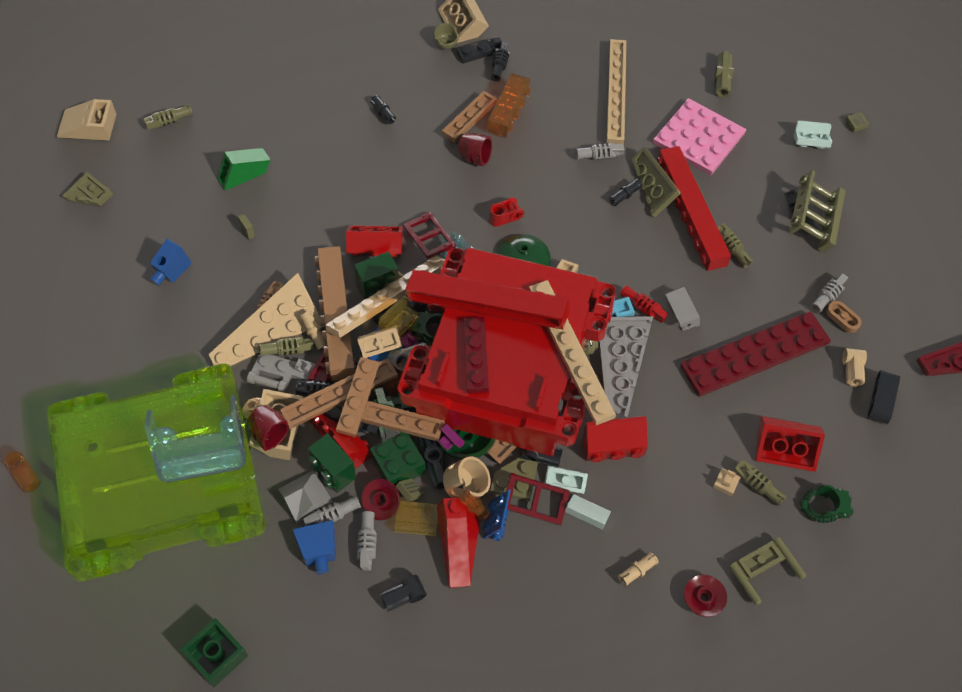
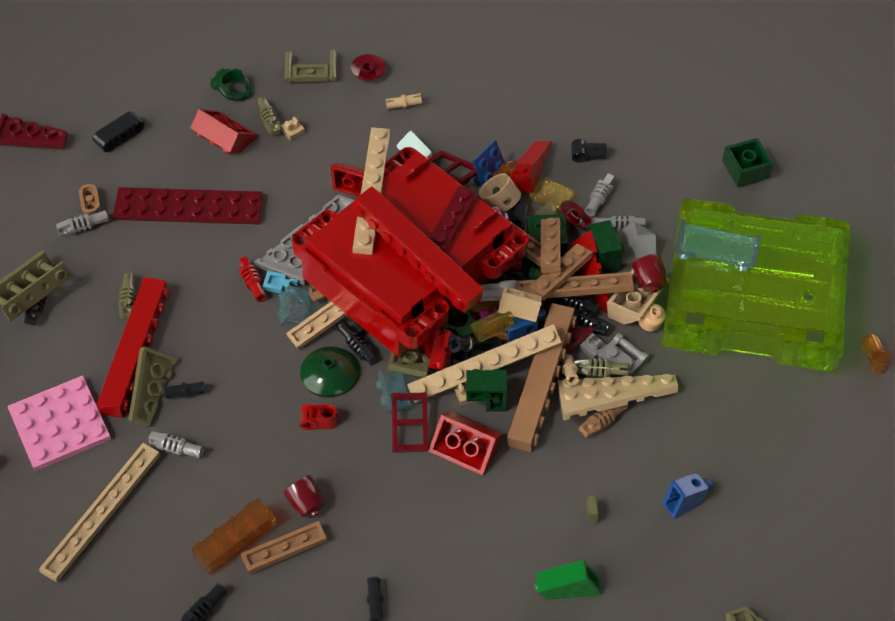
camera: 150 degrees left, 5 degrees down
(317, 545) = (641, 203): blue torso -> none
(380, 418) = (550, 245): none -> medium nougat plate
(683, 308) = (221, 259): light grey hinge -> none
(855, 362) = (116, 164): tan piece -> none

